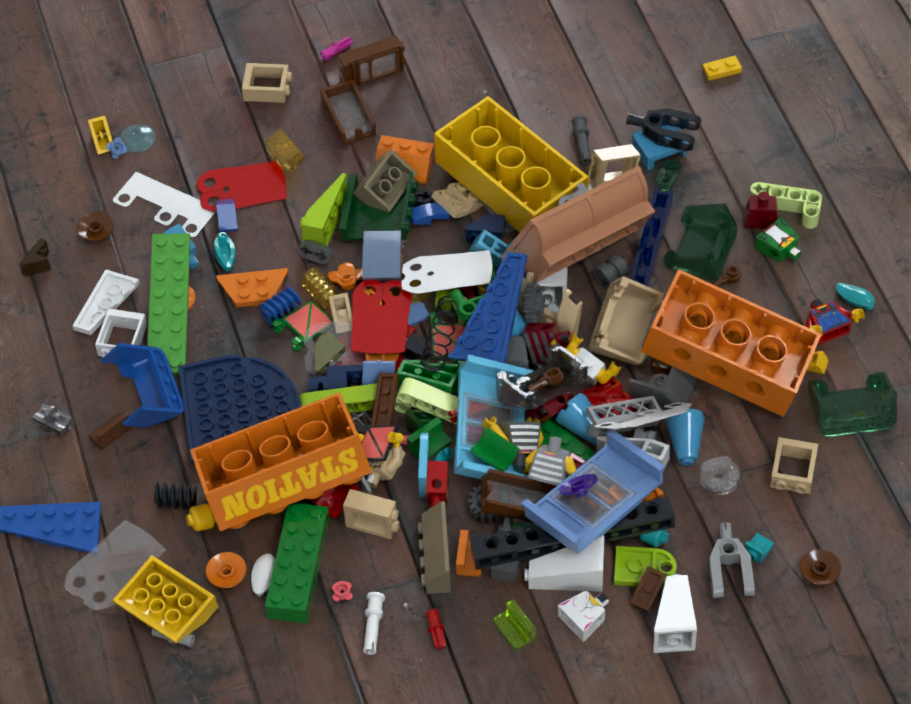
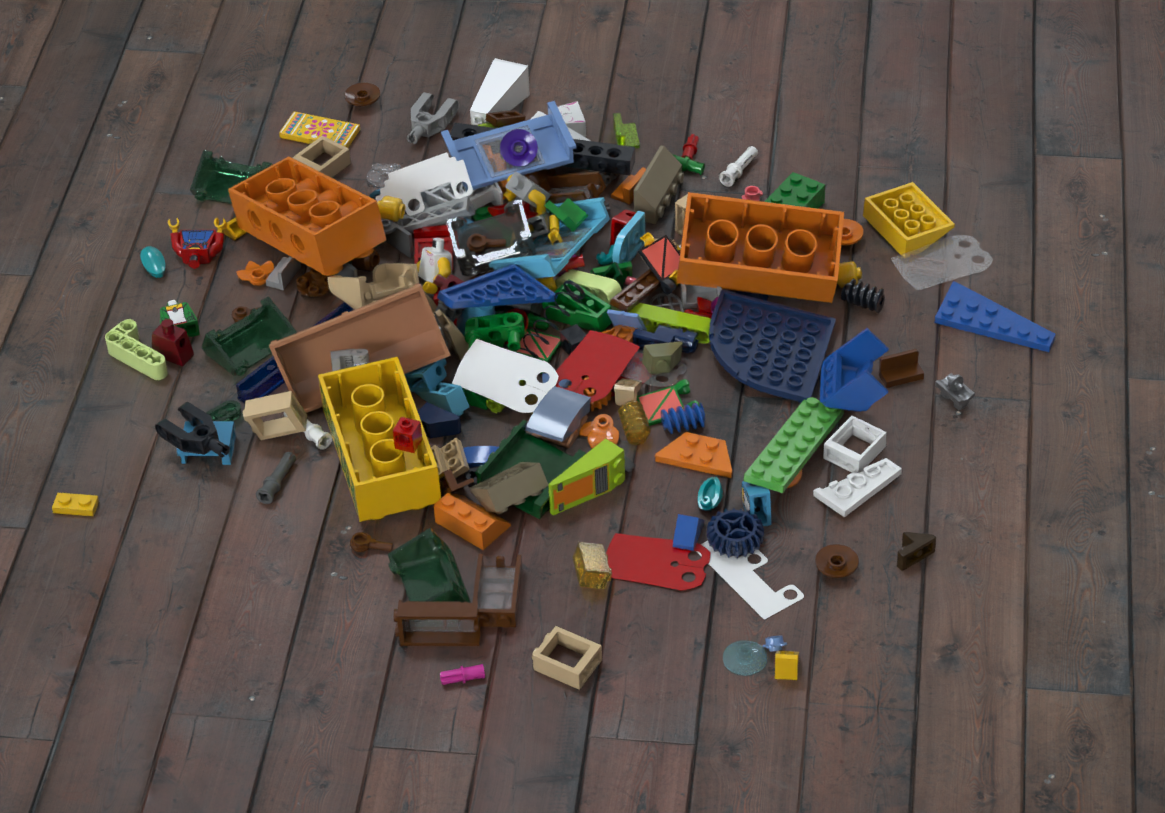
camera: 155 degrees left, 10 degrees down
(190, 214) = (735, 533): none -> dark blue gear
(395, 101) = (428, 570): none -> clear green windscreen
(427, 604) = (690, 165): none -> green pin
(432, 170) = (448, 483): none -> reddish brown panel
(469, 136) = (407, 434): none -> red brick
(665, 395) = (391, 208): none -> yellow head
(759, 548) = (398, 124): teal bracket -> none
(829, 510) = (308, 128): none -> yellow tile

